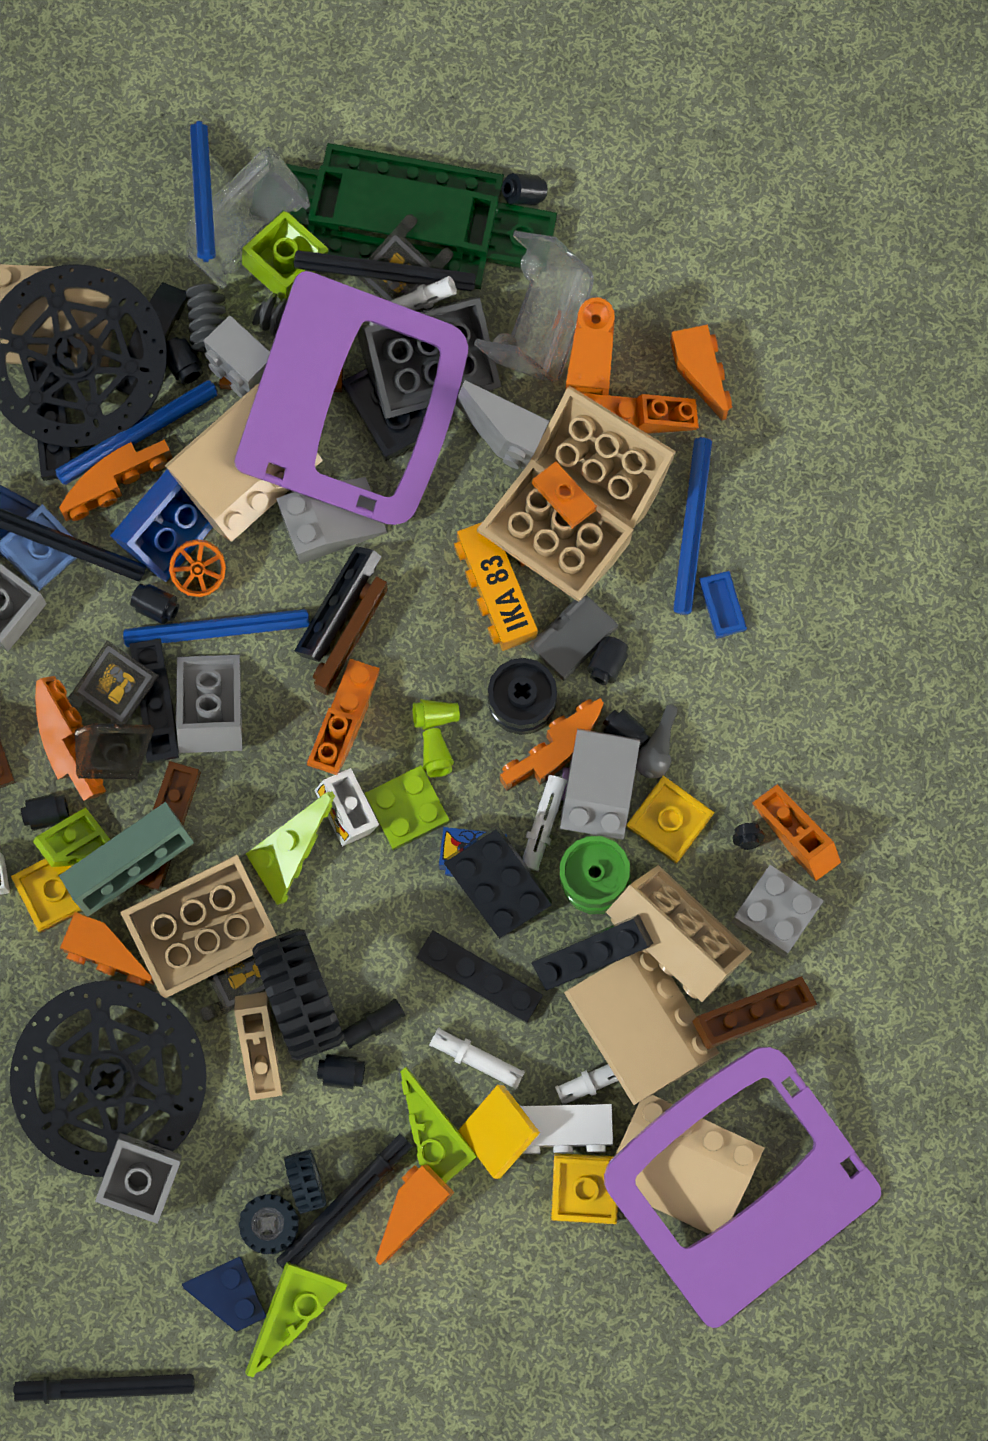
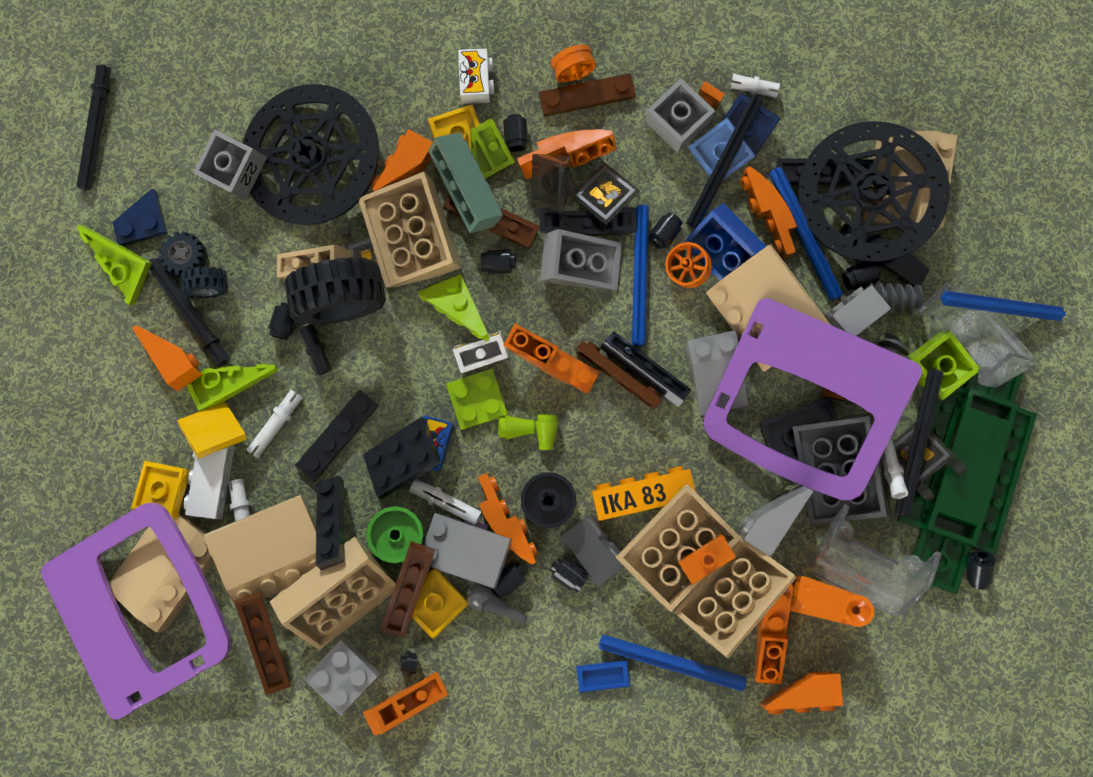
camera: 95 degrees right, 5 degrees up
(223, 807) = (498, 261): none -> black brick
(659, 845) = (407, 589): none -> reddish brown plate

